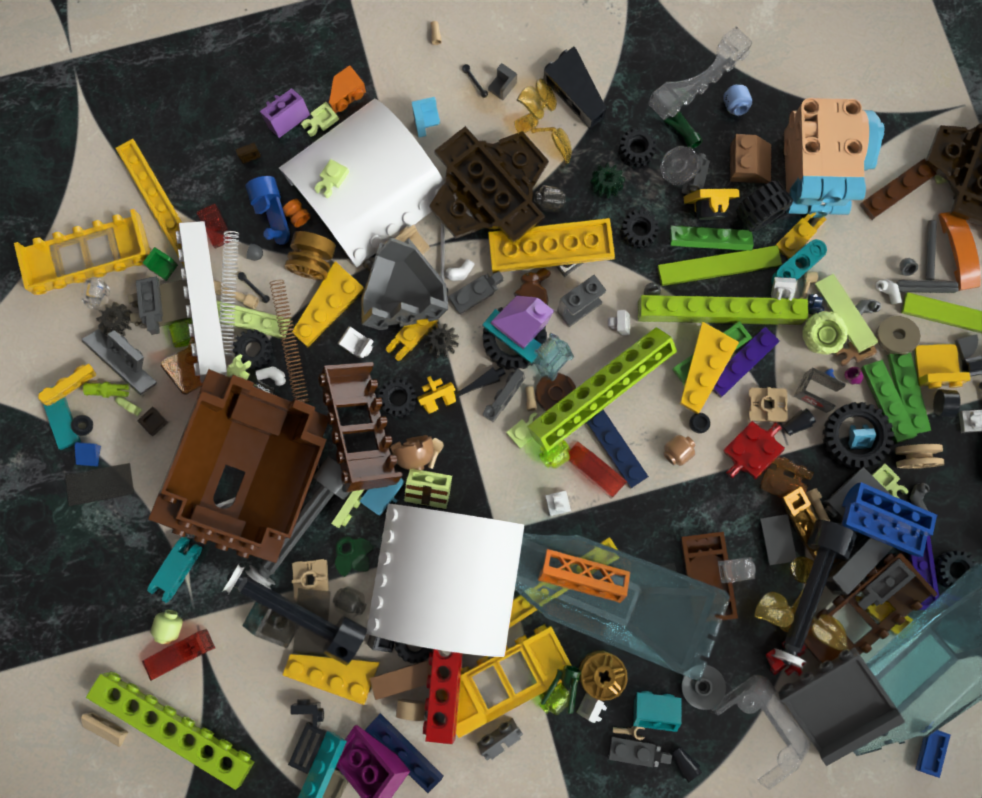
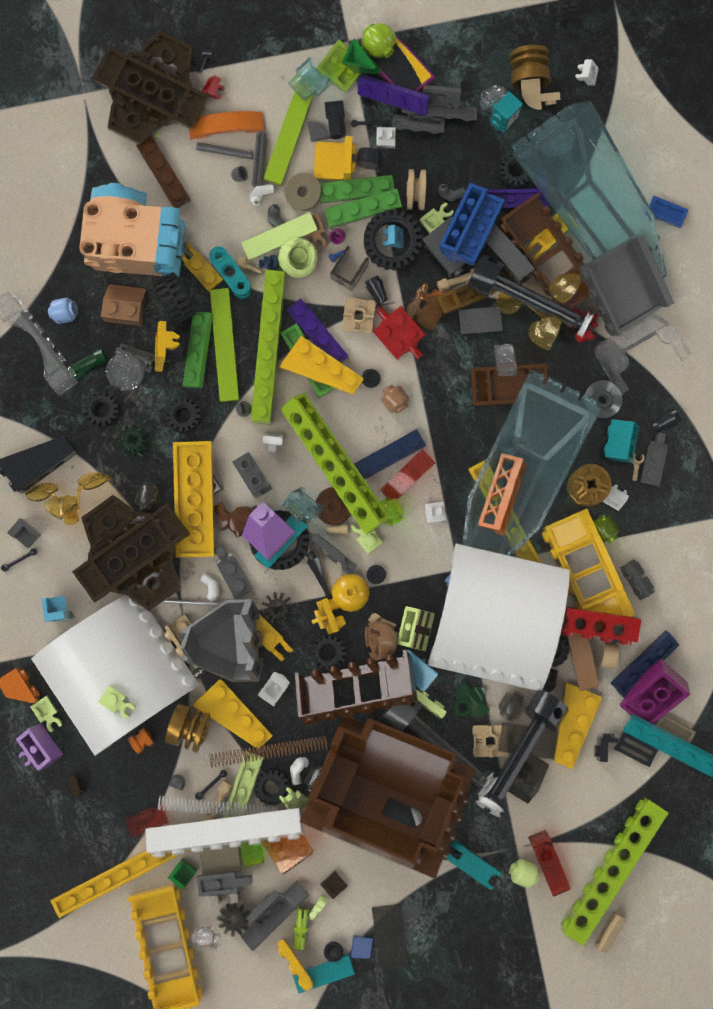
camera: 85 degrees left, 5 degrees up
(266, 197) = (125, 769): blue piece -> none
(463, 417) = (350, 592): none -> yellow cylinder
(485, 443) = (376, 574): none -> black tile
(569, 678) = (591, 514): dark green plant -> none
(783, 288) = (254, 290): white tile -> none
(886, 584) = (526, 233): dark grey hinge -> none

